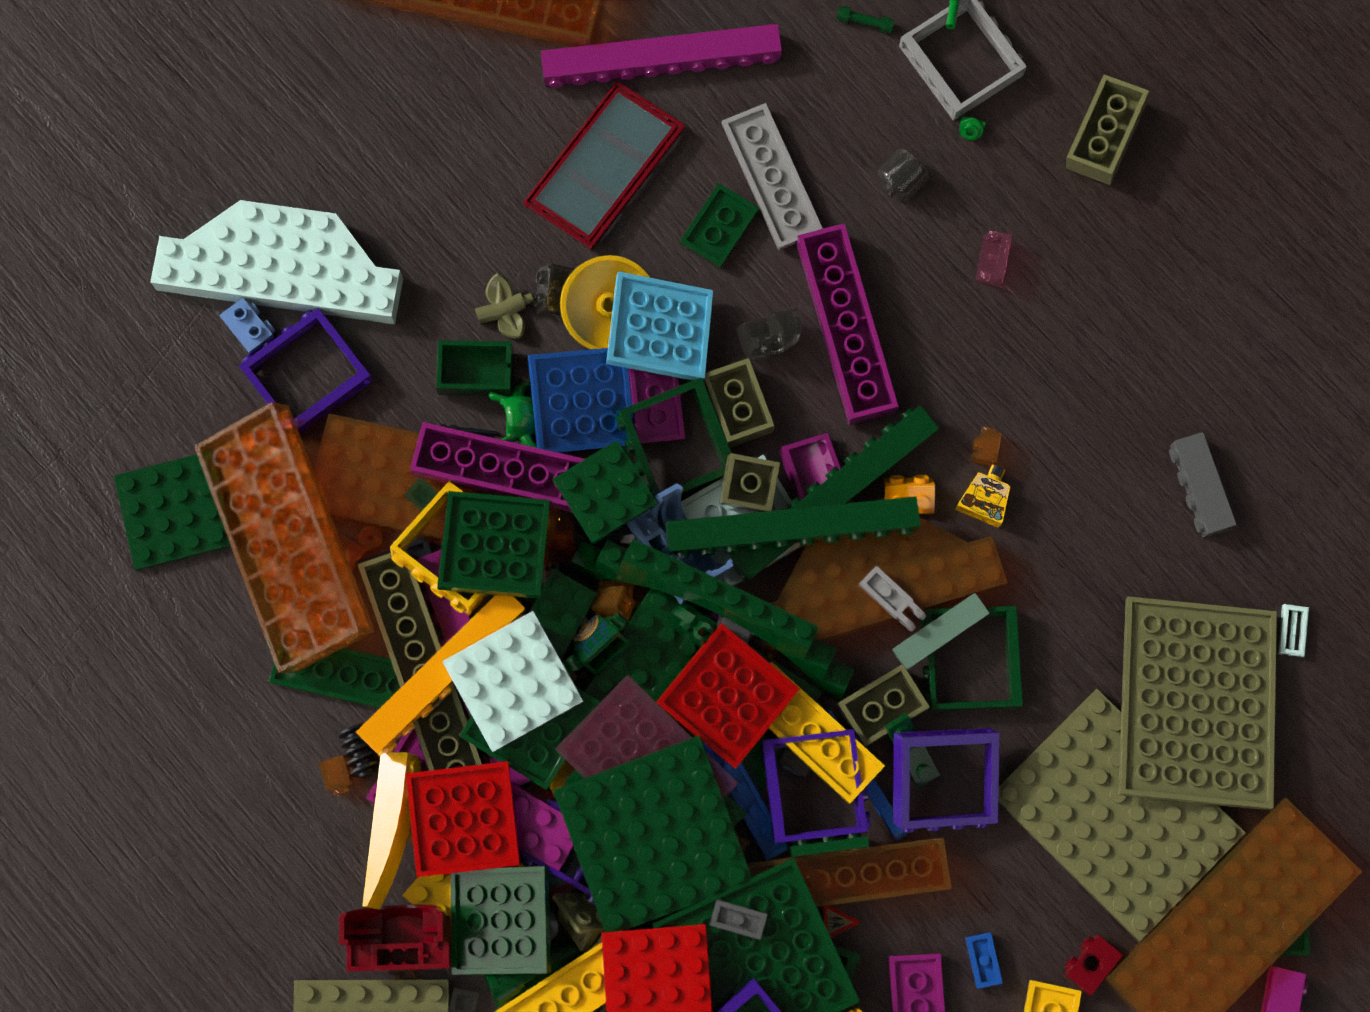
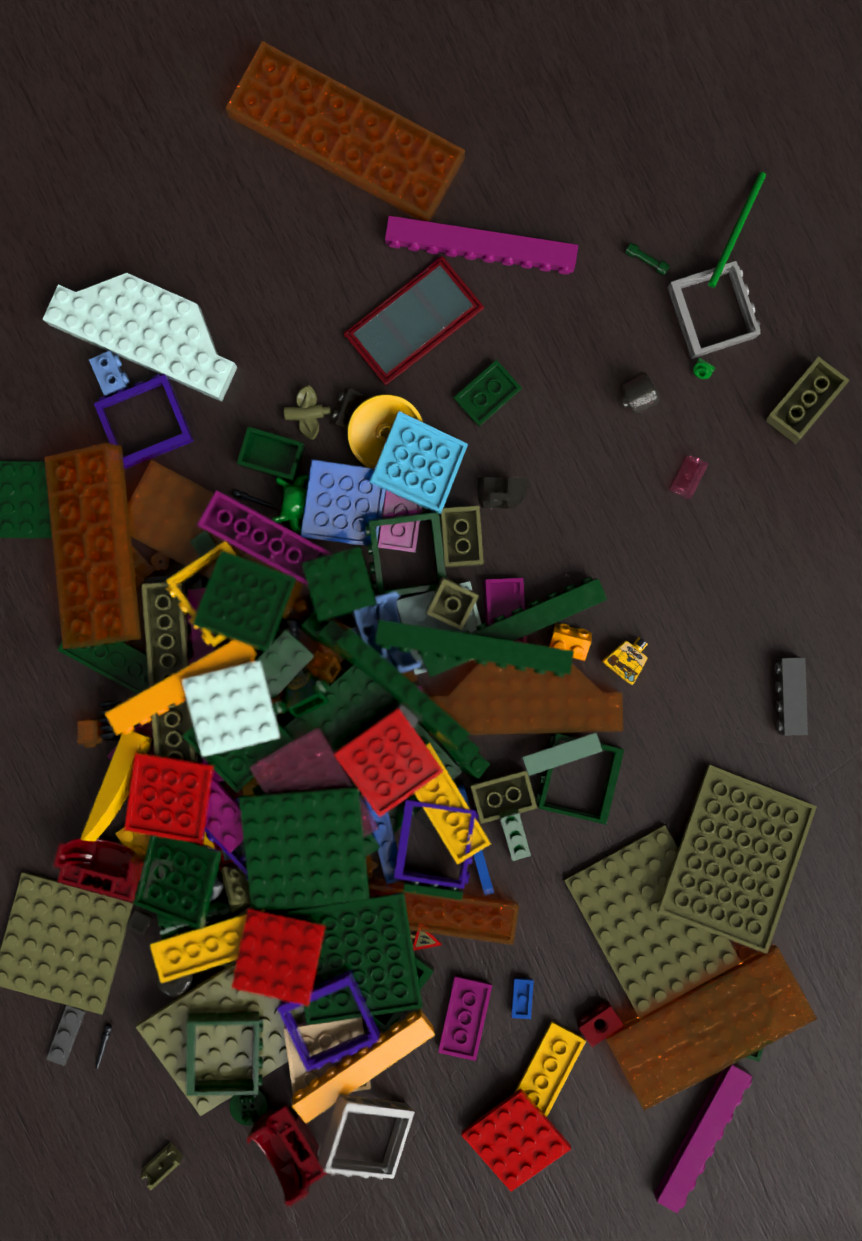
camera: 20 degrees right, 10 degrees up
(691, 623) = (376, 700): dark green plate -> none
(738, 919) = (350, 927): dark grey plate -> none
(771, 175) = (539, 365): light grey plate -> none
(846, 324) = (561, 498): magenta brick -> none
(890, 597) = (532, 719): light grey hinge -> none
(901, 778) = (540, 836): dark purple window -> none
(986, 447) = (639, 621): clear orange brick -> none
(1283, 630) = (837, 811): light aqua tile -> none

